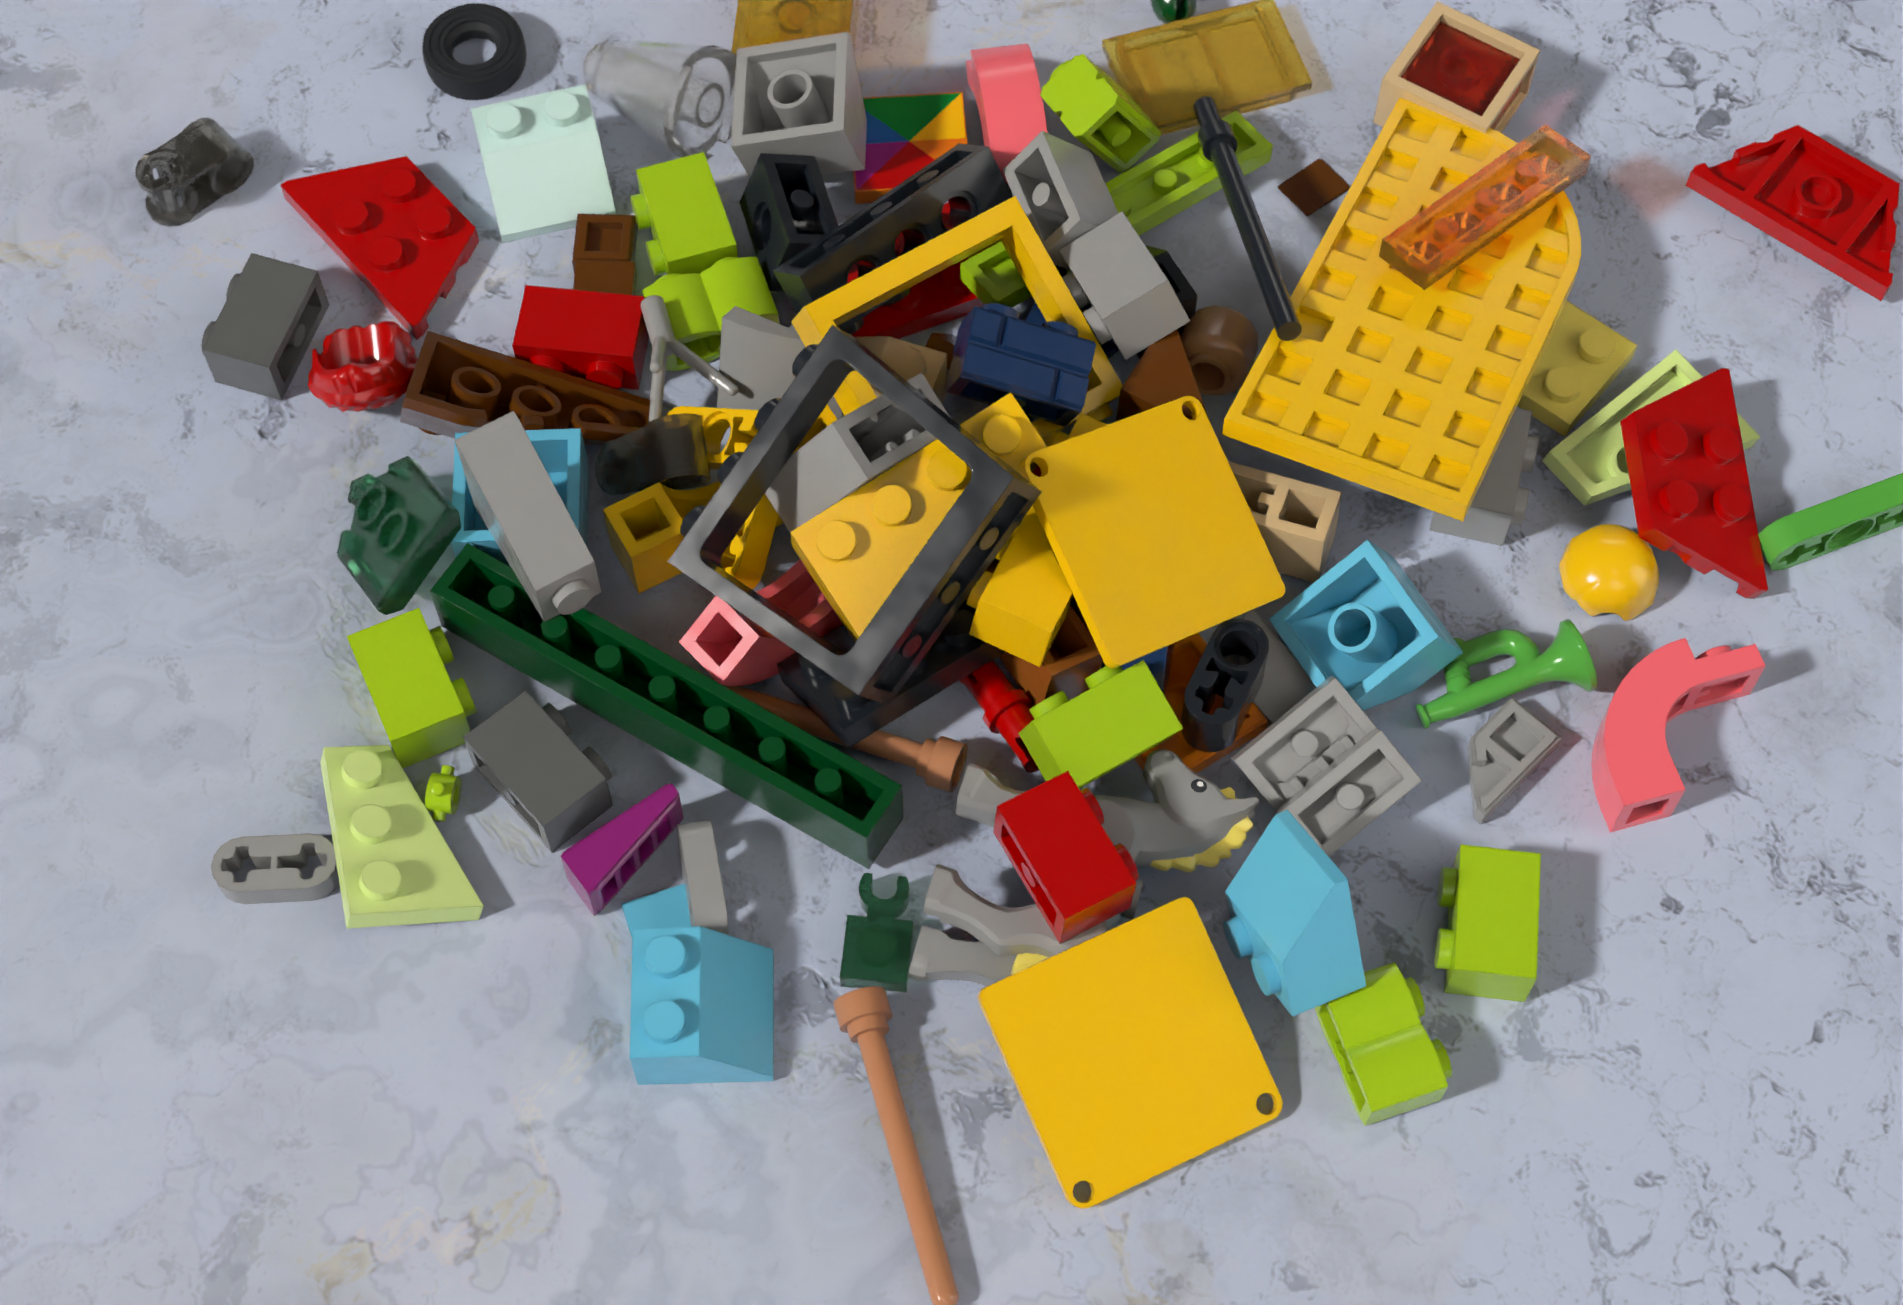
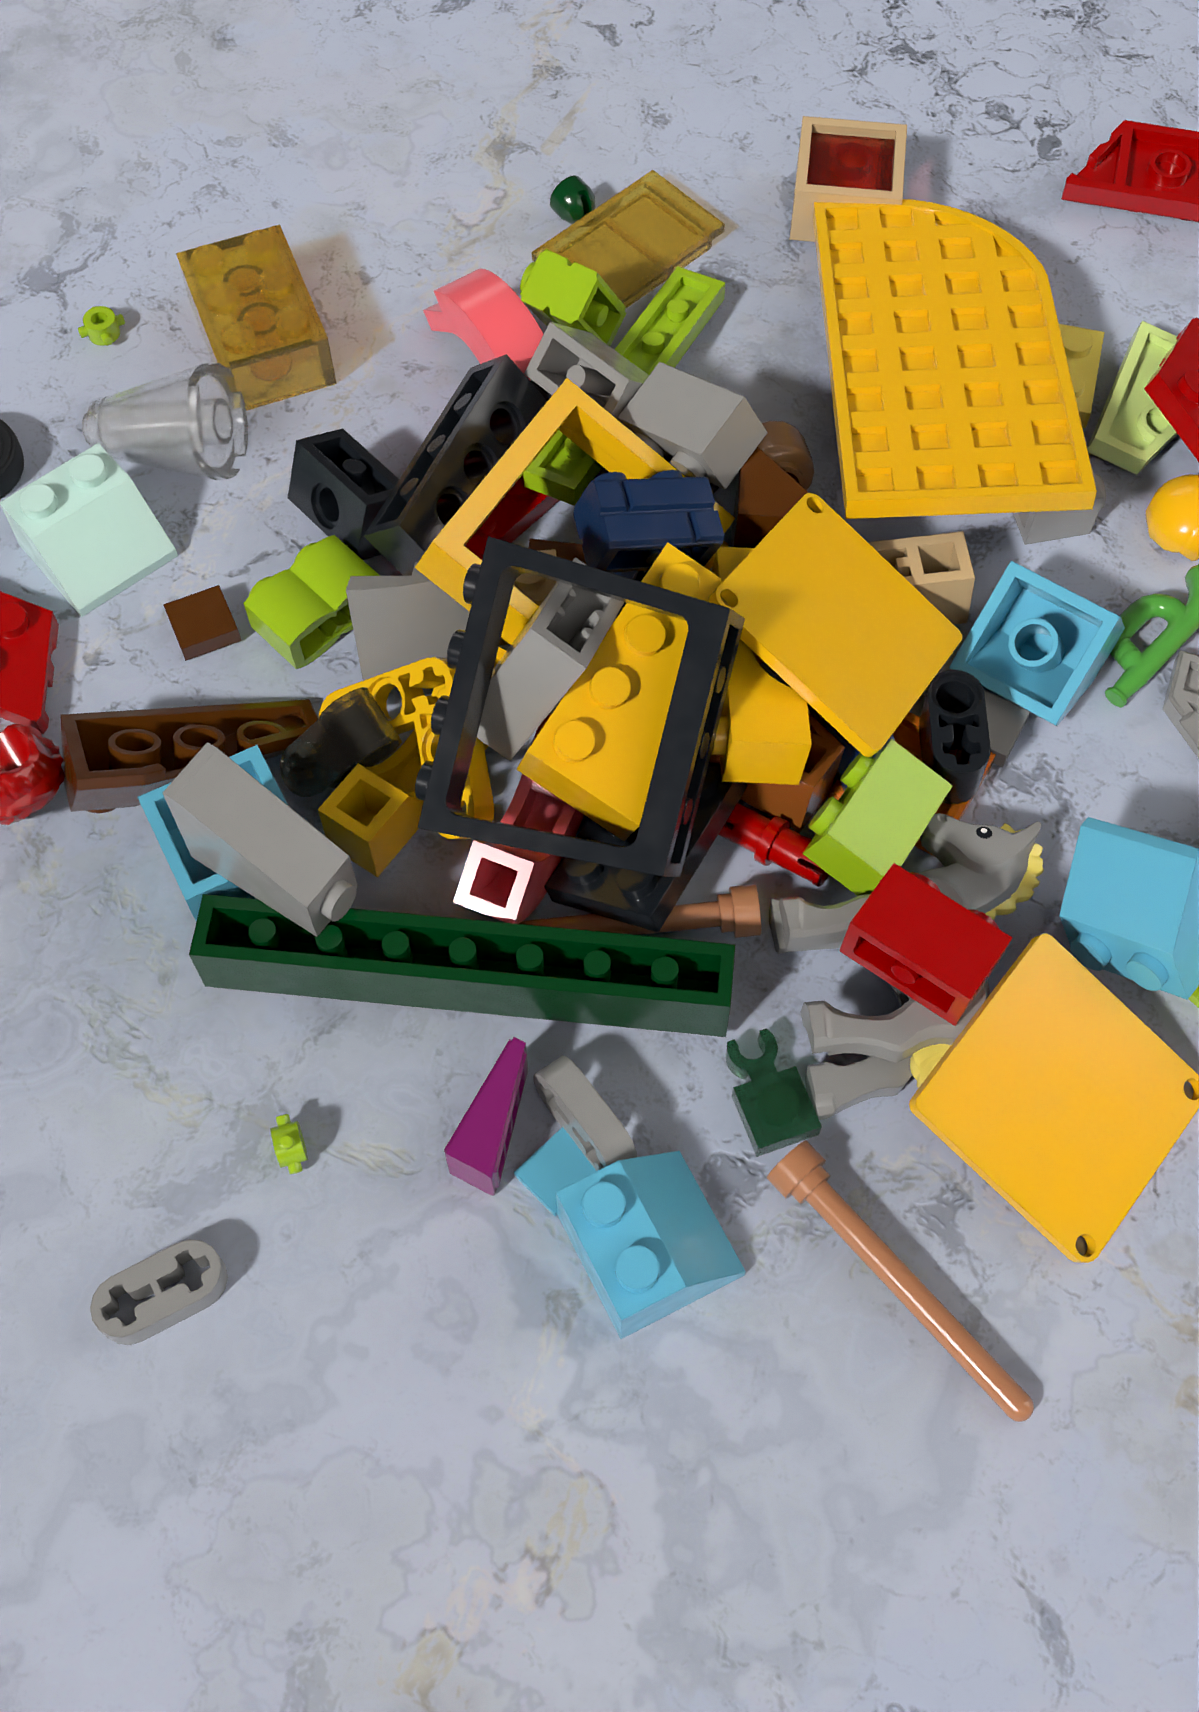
camera: 25 degrees left, 0 degrees up
(387, 845) = (261, 1219): yellowish green wing -> none
(396, 533) = (121, 915): clear green tile -> none
(411, 687) = (208, 1054): lime brick -> none
(540, 769) = (374, 1079): dark grey brick -> none
(583, 334) = (206, 663): red brick -> none
(605, 238) = (178, 575): reddish brown tile -> none
(666, 344) = (293, 643): light grey plant -> none
(683, 215) = (245, 527): lime brick -> none
(800, 102) = (304, 387): light grey slope -> none
(905, 137) = (402, 395): tile -> none
(1220, 147) = (688, 294): black bar -> none
(1313, 187) = (768, 308): reddish brown sticker -> none
(1327, 766) = (1071, 768): light grey slope -> none
(1484, 206) = (948, 254): clear orange plate -> none

